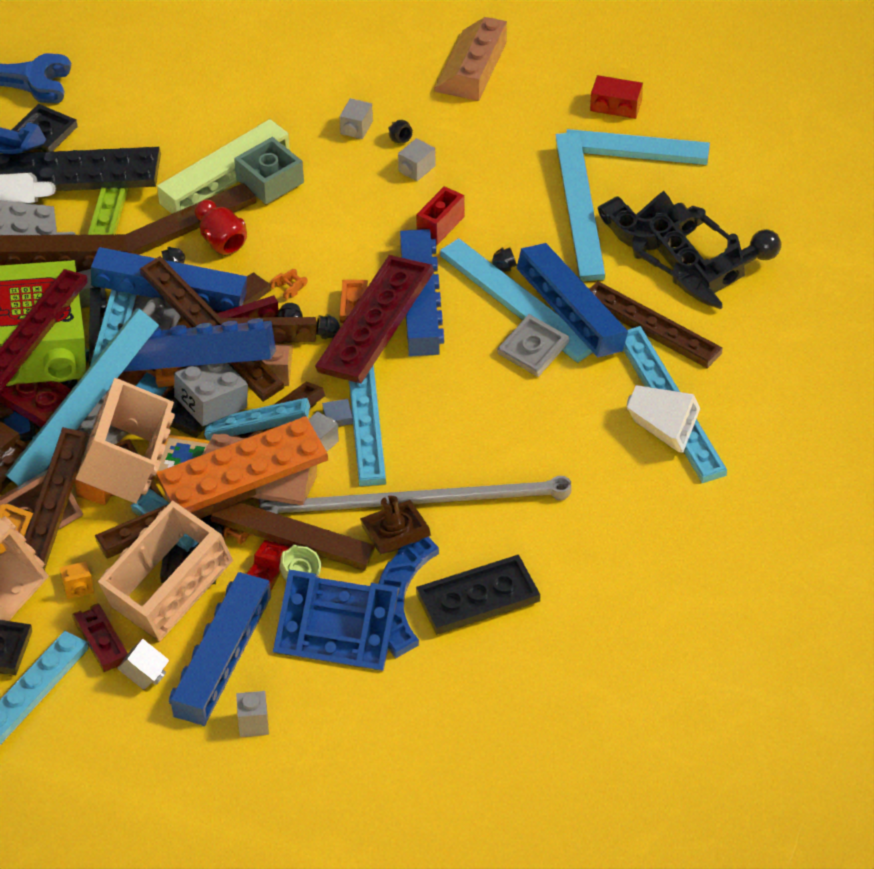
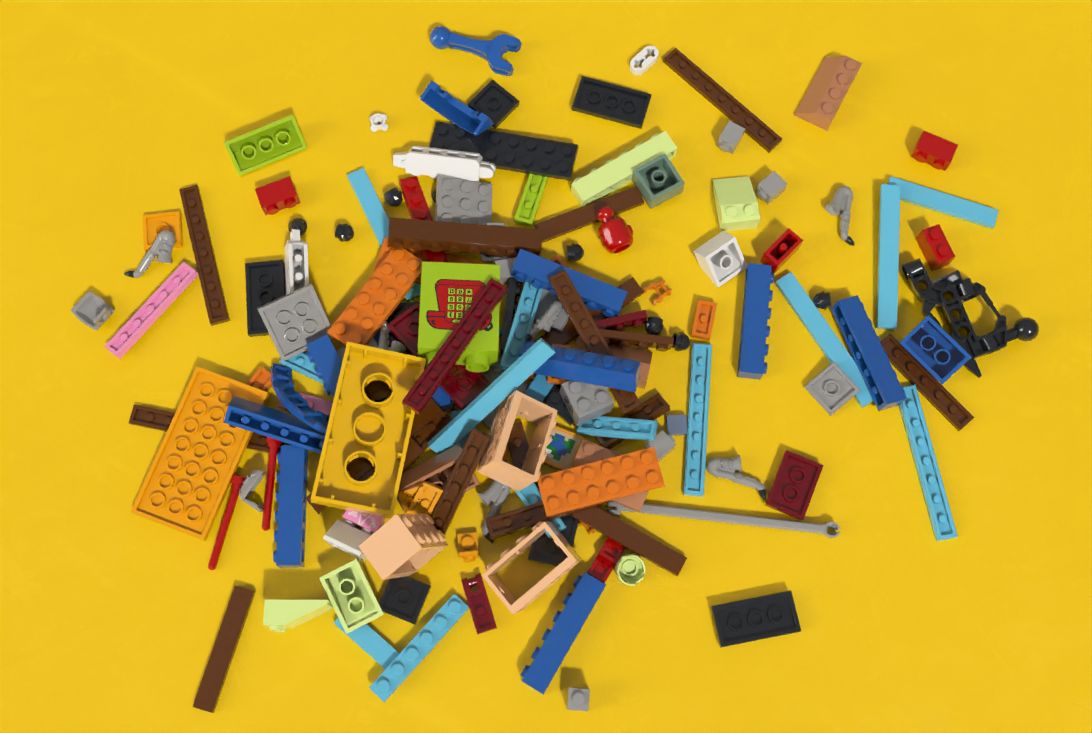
camera: 10 degrees right, 25 degrees up
(107, 516) = (497, 494): none -> light grey piece
(144, 665) = (506, 640): brick -> none
(197, 106) = (611, 102): none -> black plate
(232, 63) = (641, 58): none -> white beam
(336, 85) = (722, 100): none -> reddish brown tile
(336, 620) = (650, 625): blue slope -> none
(365, 236) = (721, 258): none -> white slope
(374, 319) = (718, 348): dark red plate -> none
(376, 185) = (736, 204): none -> yellowish green slope
(395, 525) = (704, 547): reddish brown plate -> none
(399, 574) = (693, 600): blue tile -> none
(400, 131) = (762, 155): black plate -> none
(412, 447) = (726, 468): none -> light grey piece
(502, 449) = (794, 485): none -> dark red plate
(512, 160) = (842, 201): none -> light grey piece
(634, 184) = (935, 247): none -> red brick
(655, 280) = (935, 349): none -> blue brick
(664, 414) = (921, 480): white slope -> none

